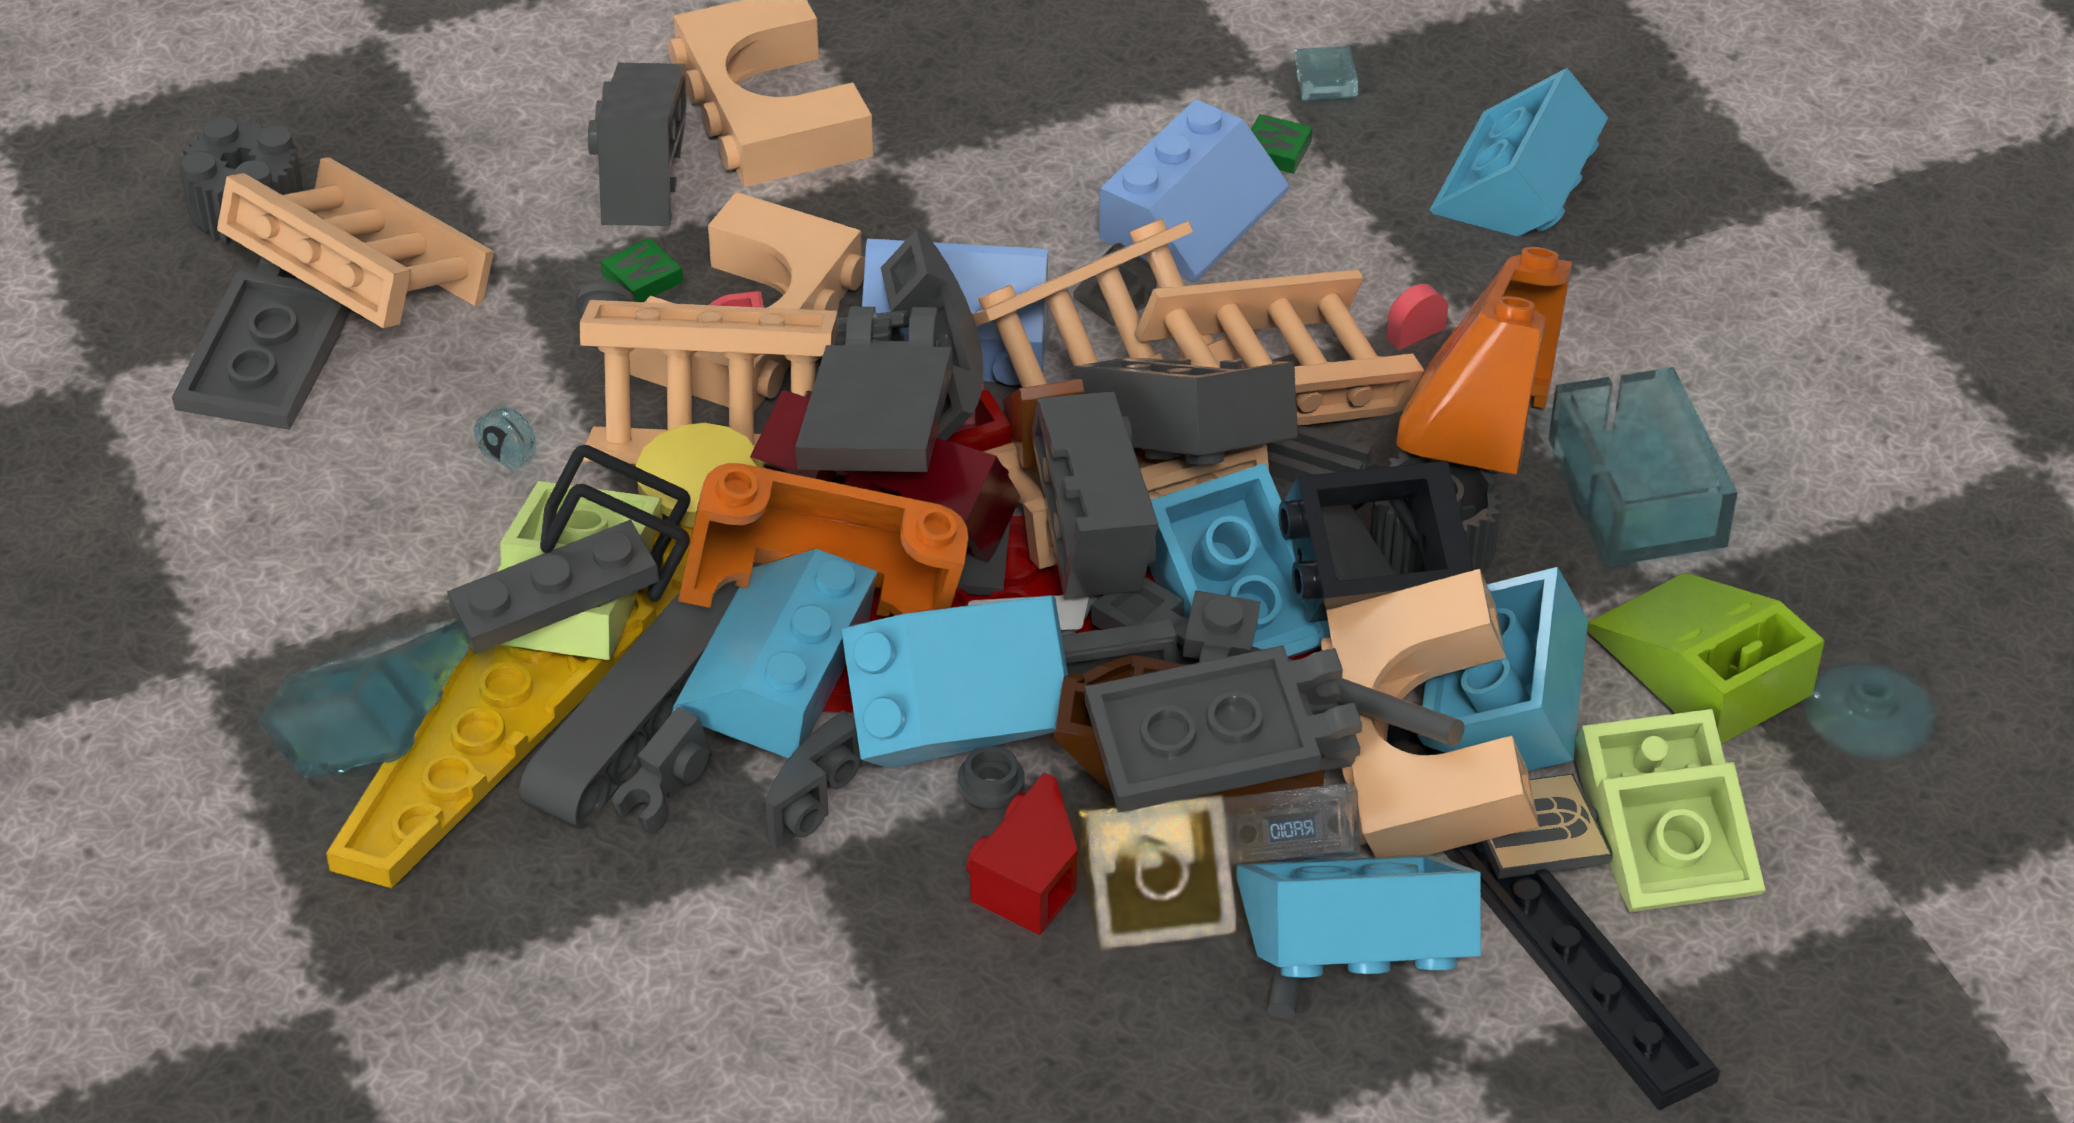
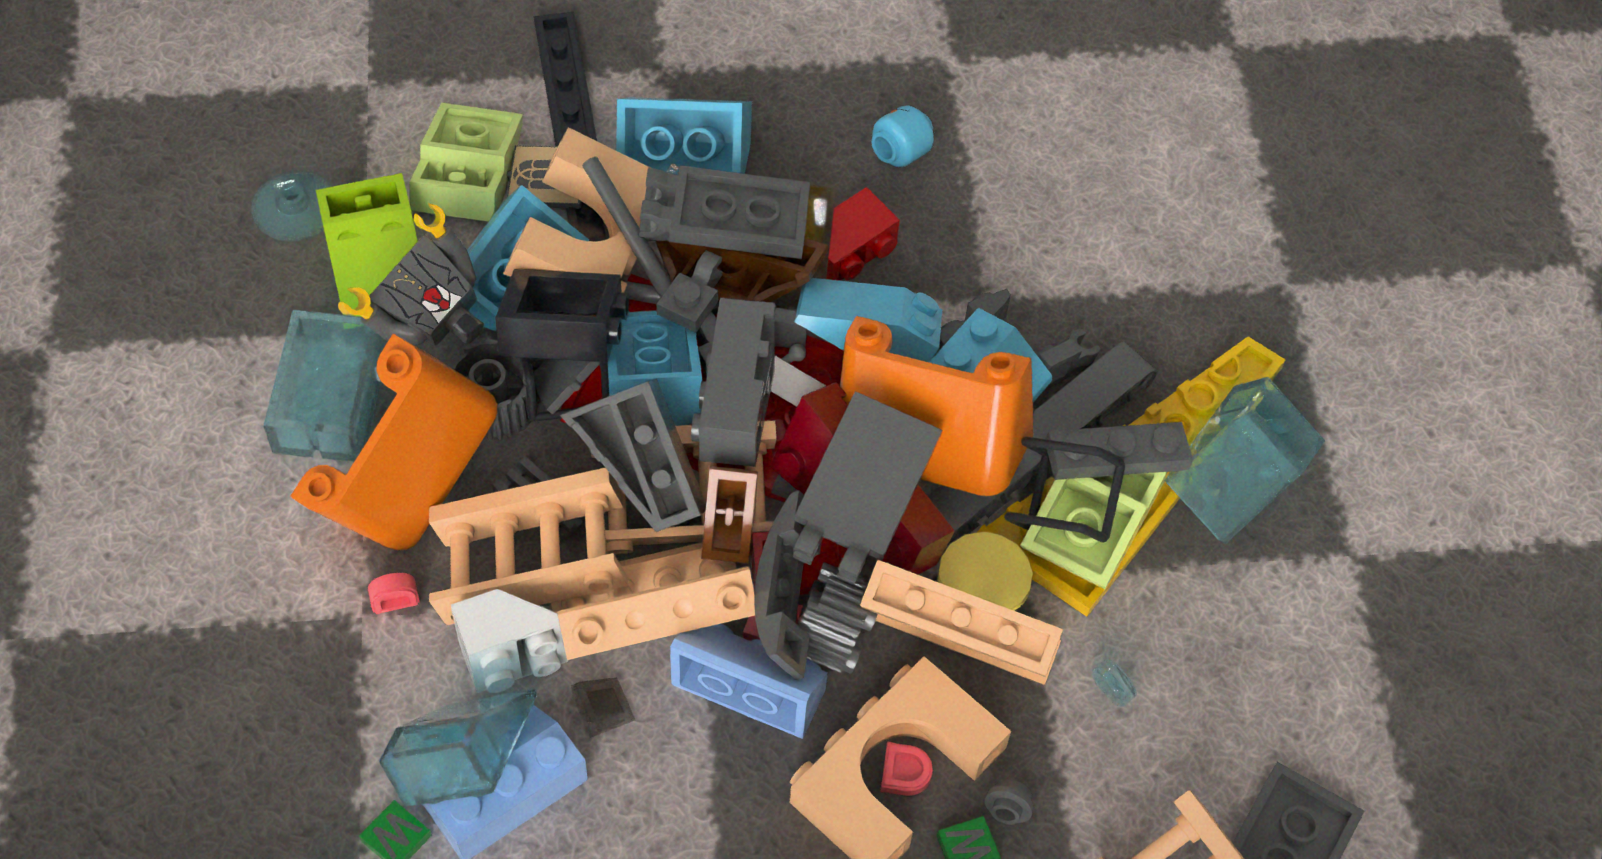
camera: 165 degrees left, 15 degrees up
(1018, 1024) = (902, 136): none -> medium azure head
(1243, 157) = (456, 748): none -> clear light blue slope
(1254, 243) = (507, 639): none -> white slope
(1524, 158) = (217, 733): medium azure slope -> none
(1573, 513) = (424, 291): none -> dark grey torso

